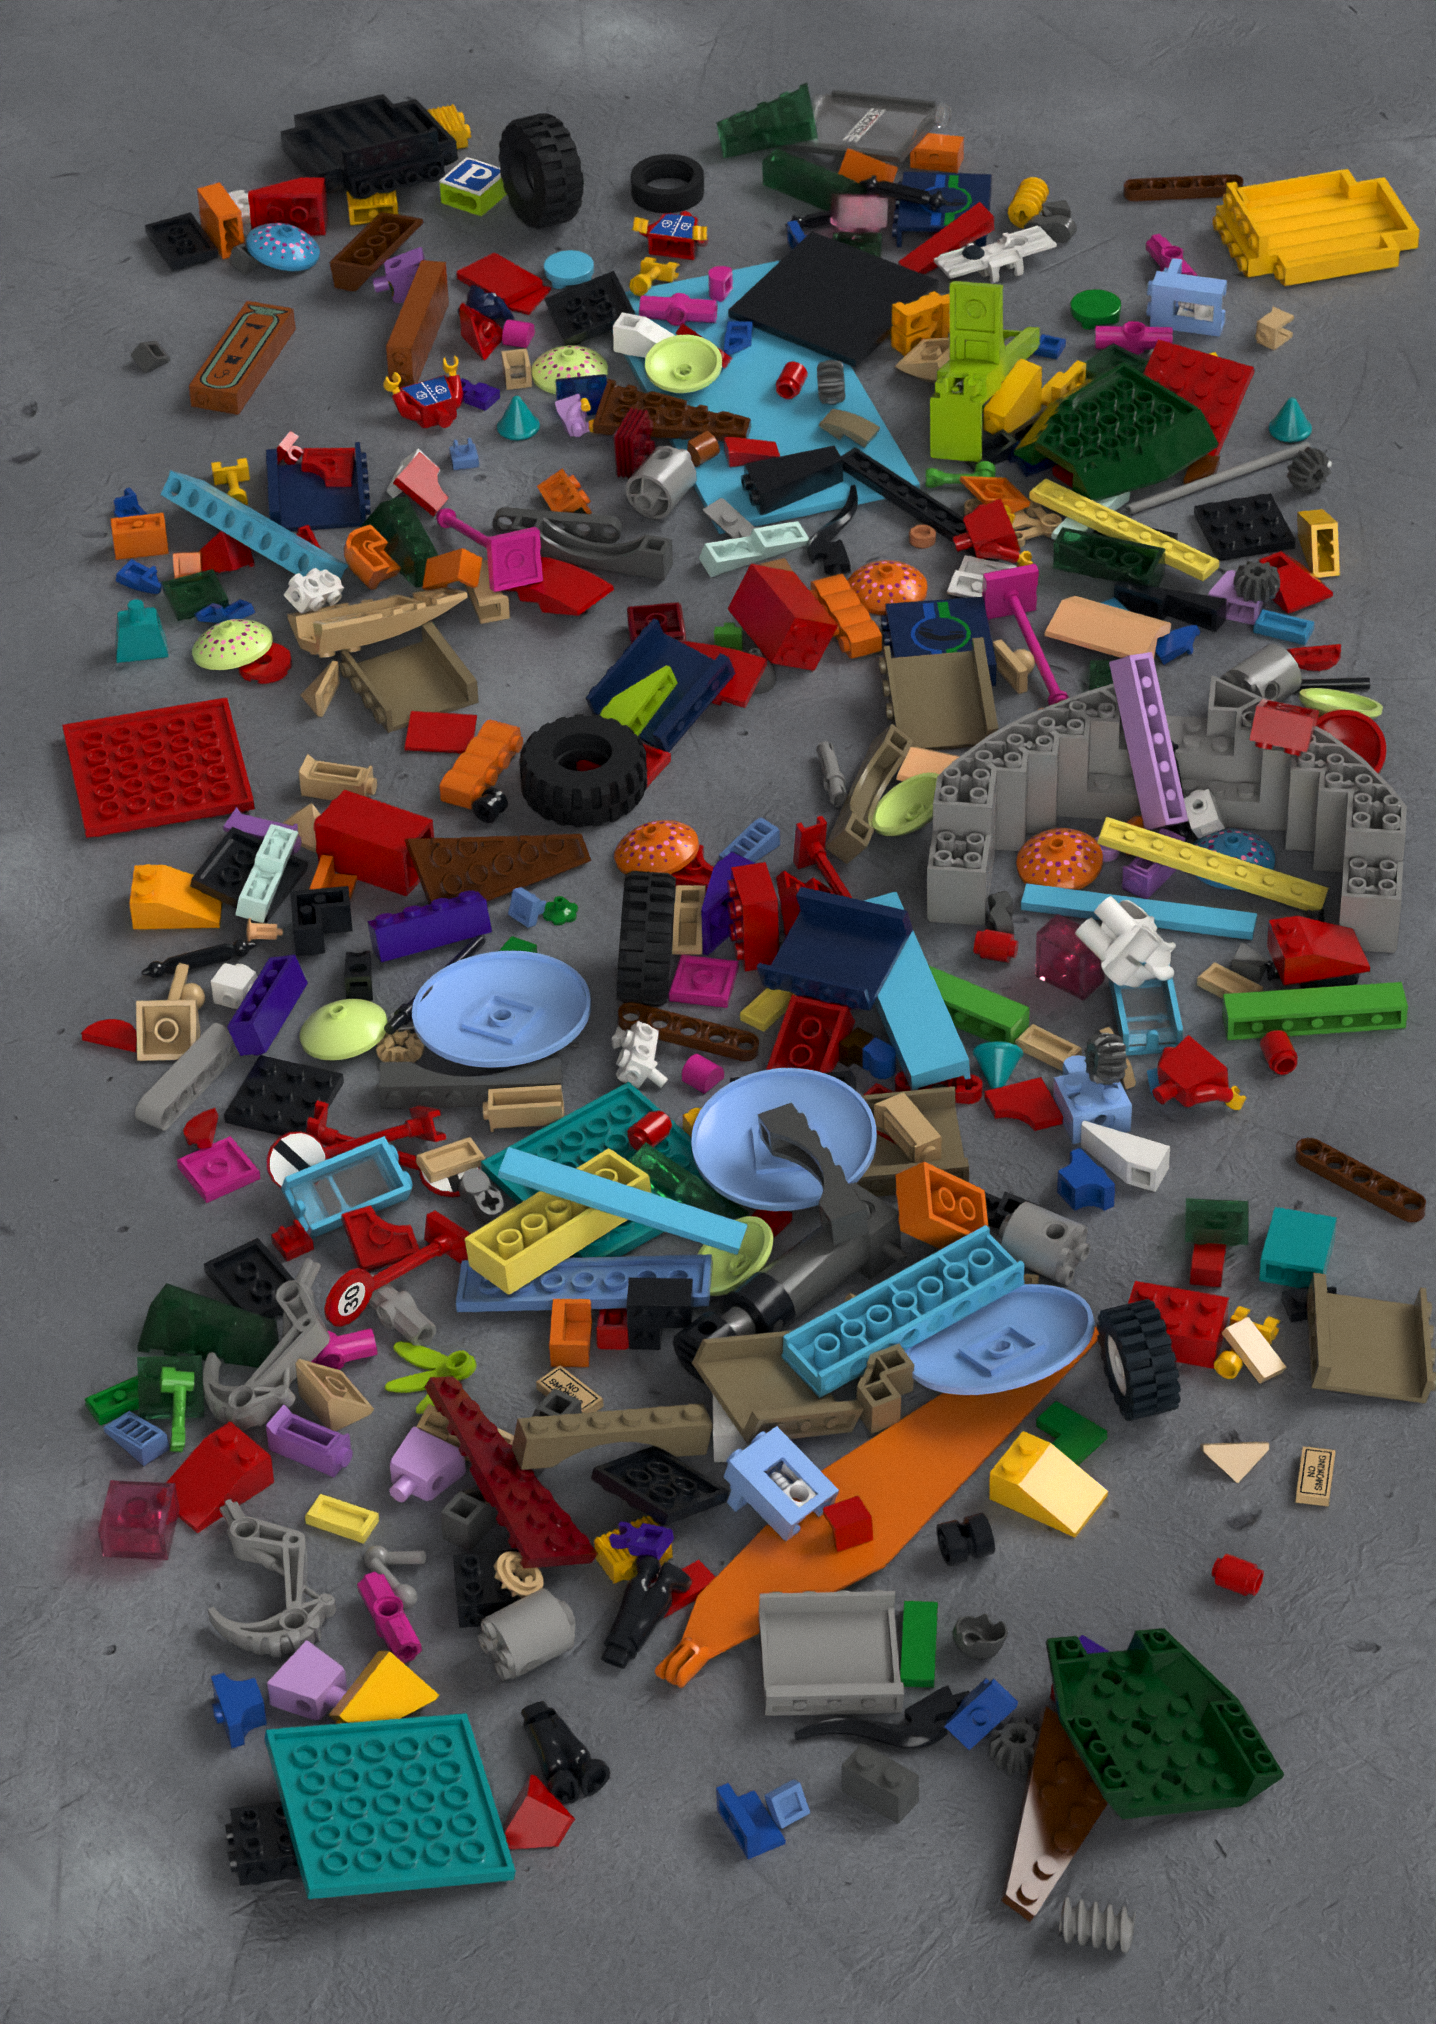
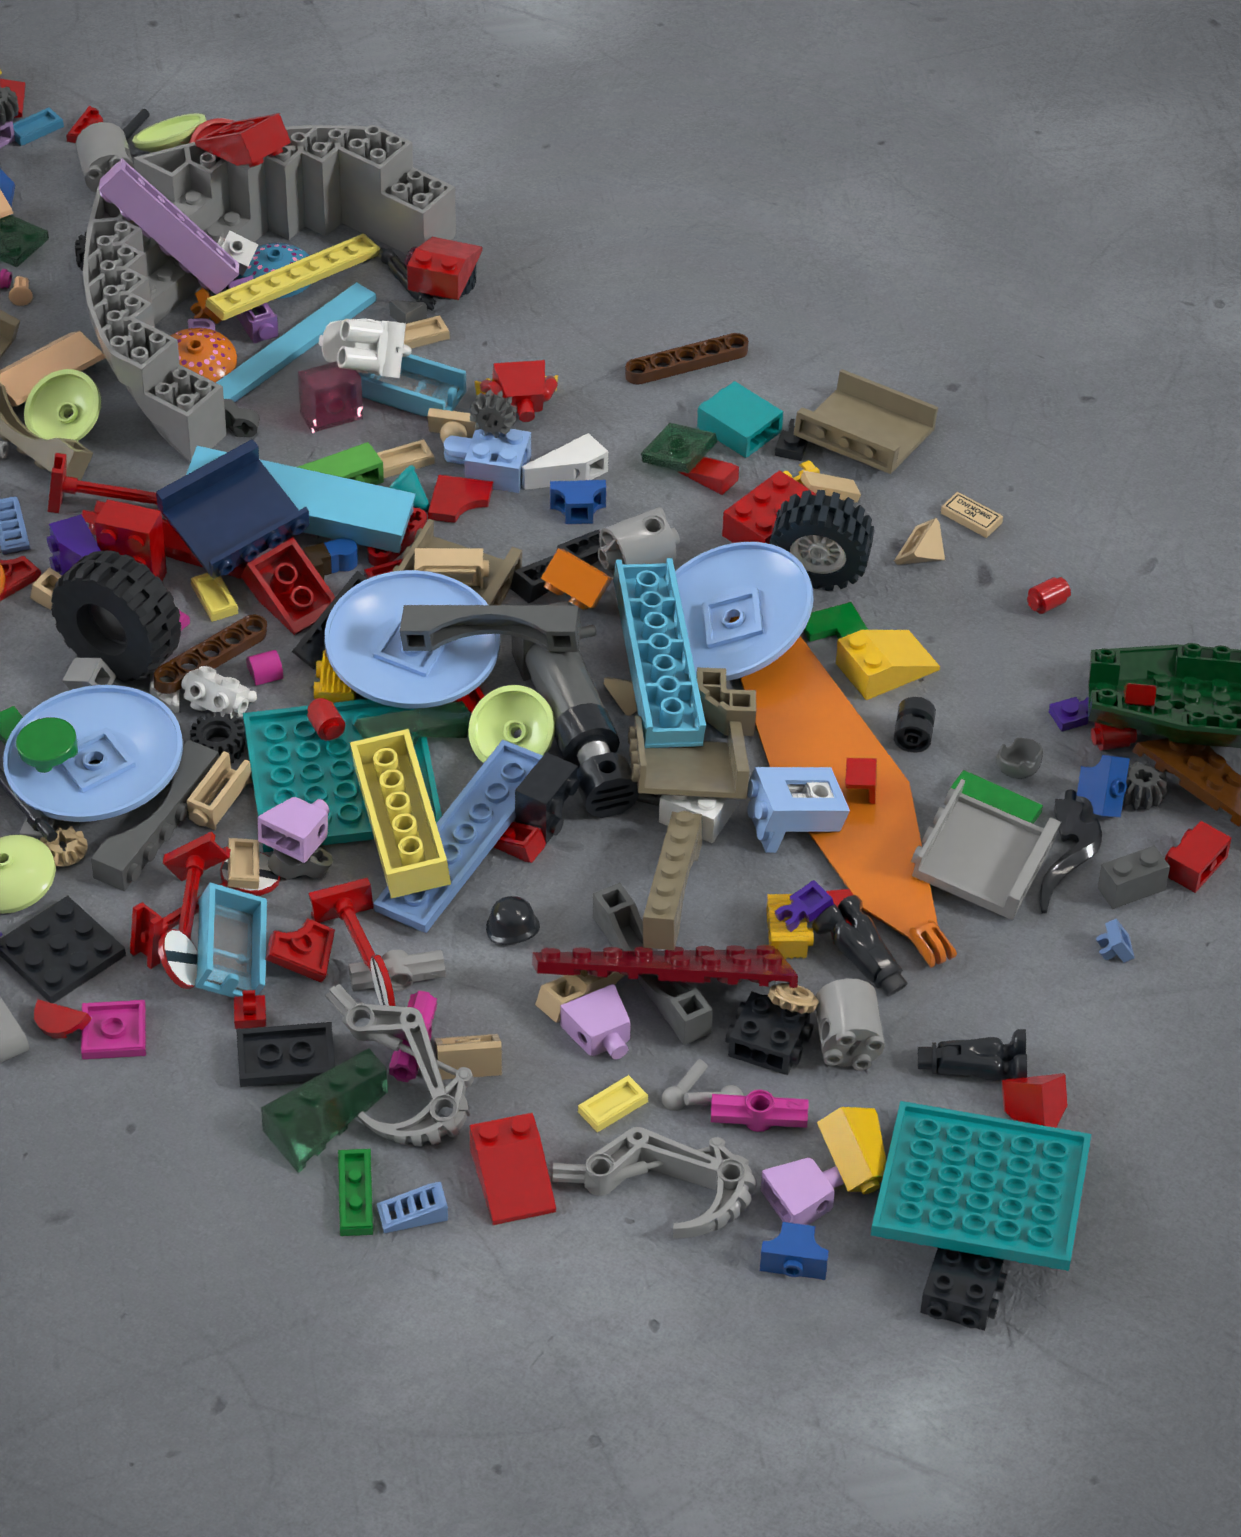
camera: 65 degrees left, 5 degrees up
(139, 1520) = (534, 1237): clear pink brick -> none
(160, 1405) = (376, 1159): clear green plate -> none
(177, 1383) = (392, 1146): bright green brick -> none
(308, 1442) = (516, 1088): medium lavender window -> none
(456, 1365) = (489, 972): lime plant -> none
(482, 973) = (47, 743): none -> green tile
(486, 1166) = (295, 827): none -> lavender torso
(510, 1361) = (511, 921): none -> black helmet
(569, 1384) = (571, 899): tan tile -> none
(570, 1333) = (510, 873): orange panel -> none
(588, 1070) = (220, 727): none -> black tyre
(594, 969) = (88, 672): none -> light grey brick
(622, 1200) = (427, 756): medium azure tile -> none
(659, 1485) = (740, 877): black plate -> none
(748, 1821) = (1117, 975): blue panel -> none
(949, 1826) = (1197, 856): none -> red brick
(995, 945) = (268, 433): red brick -> none
(1116, 1682) = (1140, 694): none -> red slope
(1279, 1052) = (521, 337): red brick -> none
(1315, 1010) = (492, 300): bright green brick -> none

